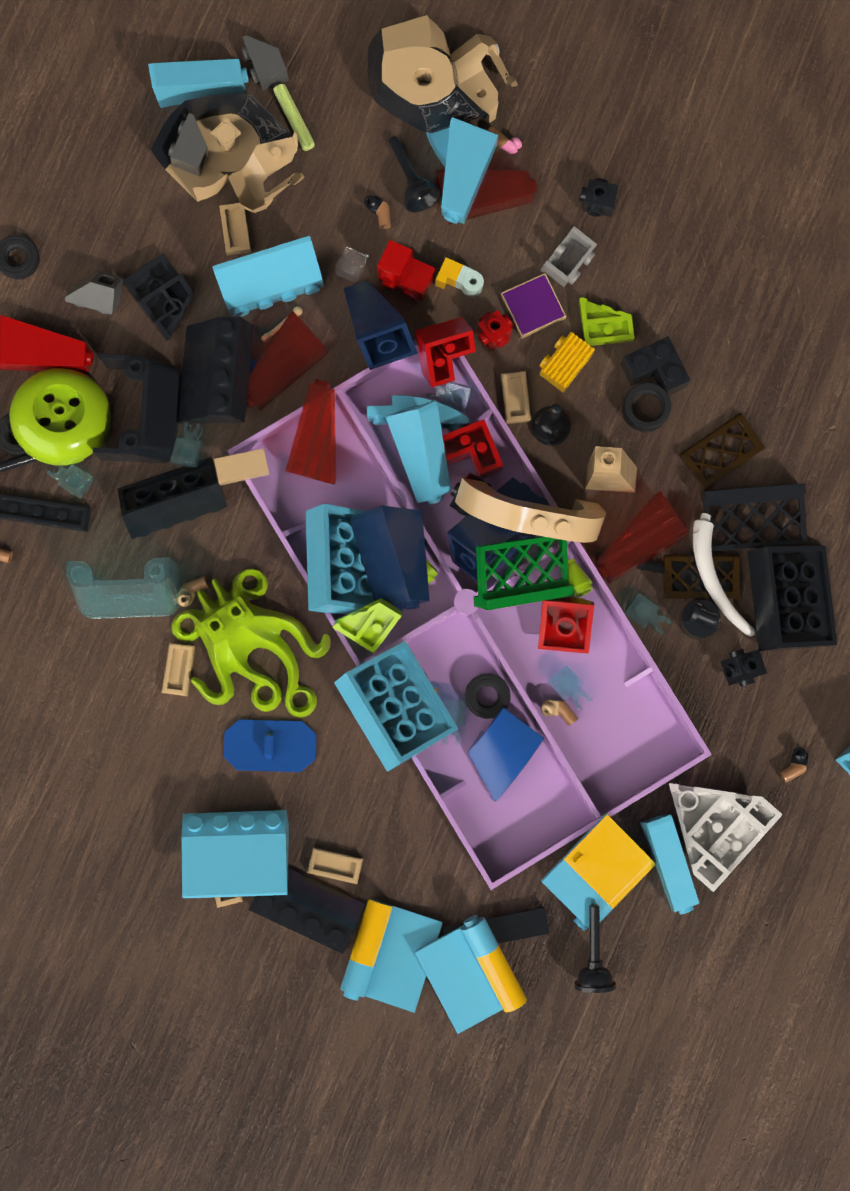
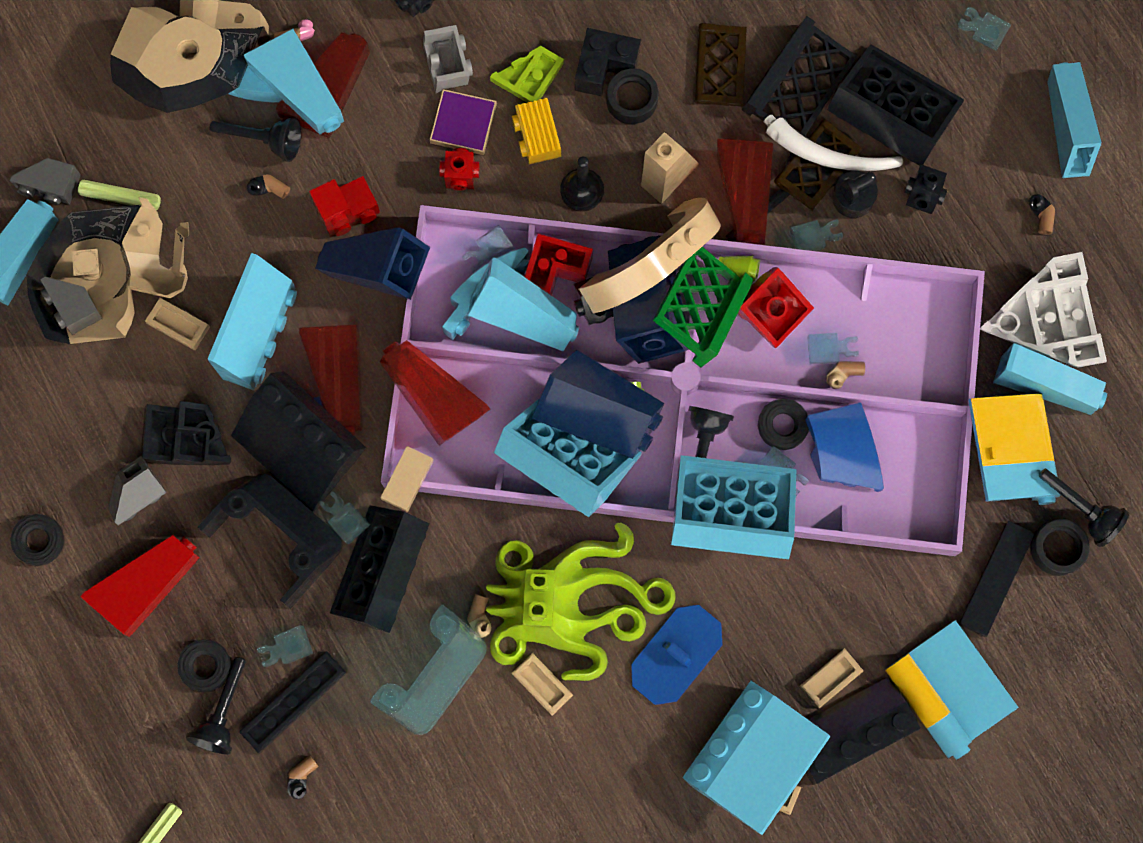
camera: 55 degrees left, 5 degrees down
(54, 442) = (244, 633): lime brick -> none
(266, 337) = (300, 372): tan hinge -> none
(351, 264) = (296, 248): clear slope -> none
(369, 624) = (643, 473): lime wing -> none
(440, 345) = (441, 221): red brick -> none
(444, 643) = (708, 424): none -> black piece
(460, 277) = (387, 162): leg -> none
(471, 974) = (1021, 630): medium azure door -> none
(515, 397) = (532, 198): tan tile -> none
(572, 964) = (1073, 530): none -> black tyre

